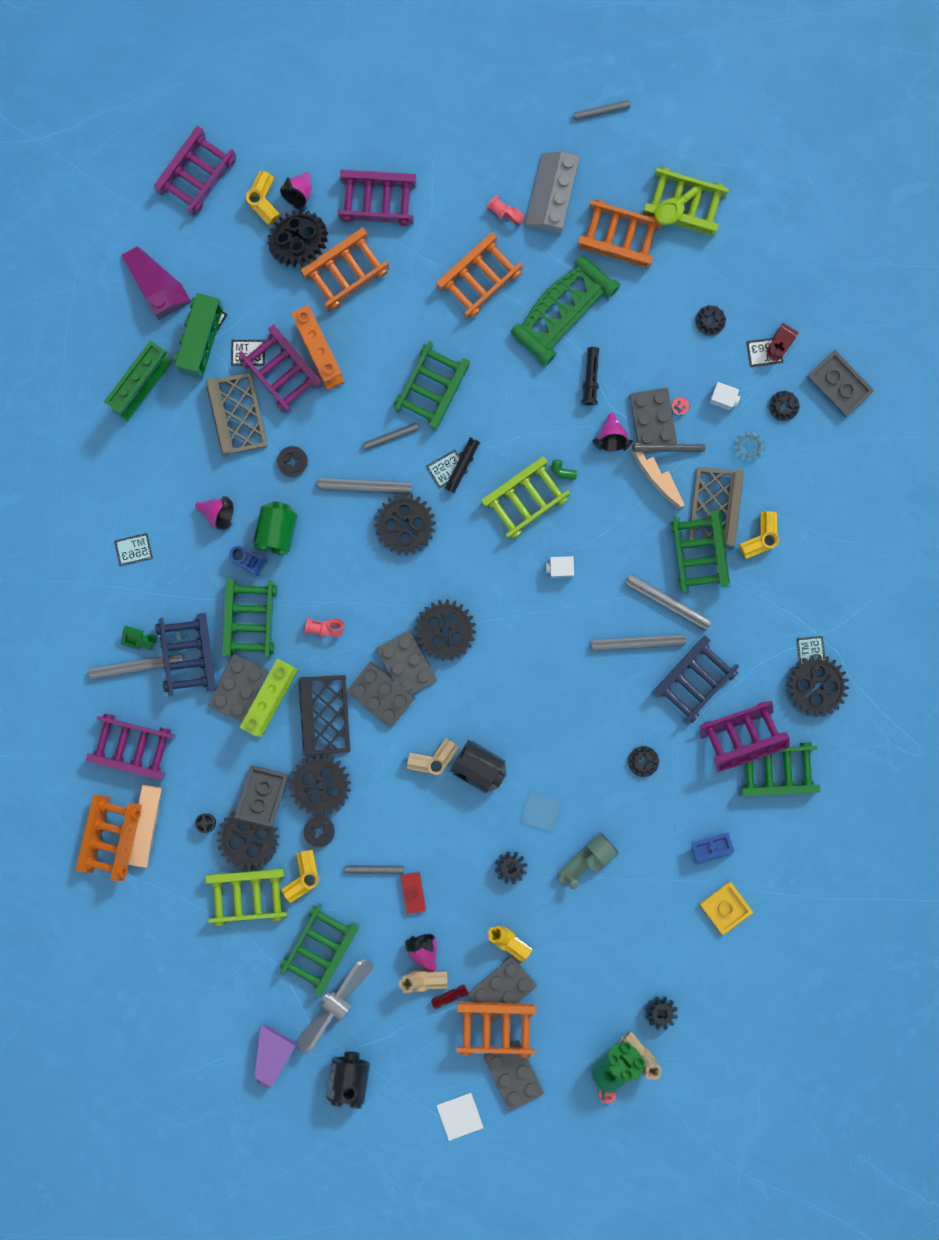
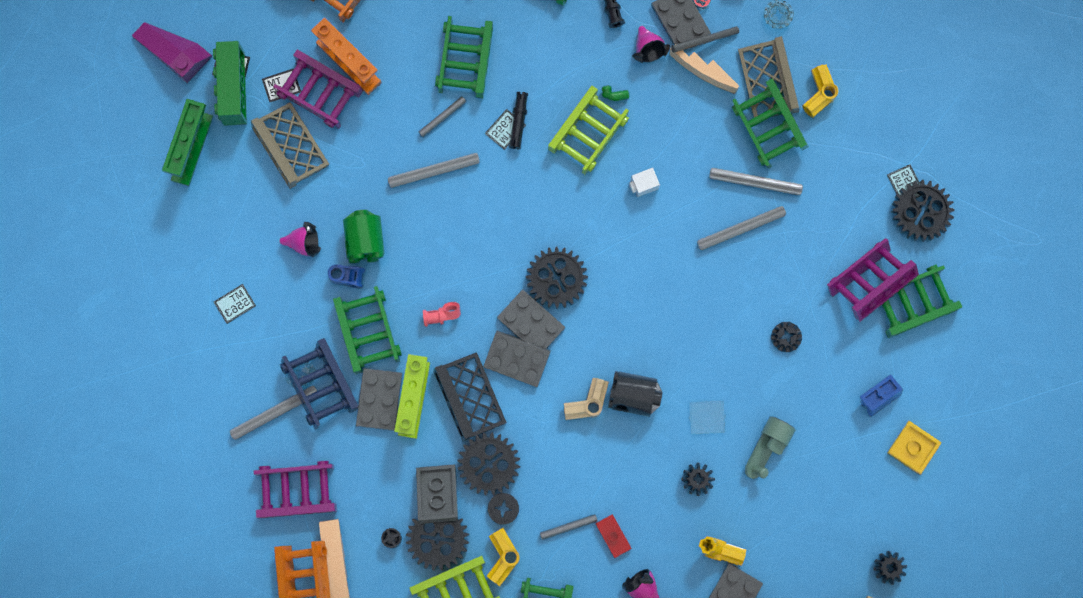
camera: 15 degrees left, 5 degrees down
(134, 638) = (265, 386): green plate -> none
(284, 456) = (360, 162): black gear -> none
(417, 511) = (476, 208): black gear -> none
(689, 661) = (789, 246): dark blue fence -> none

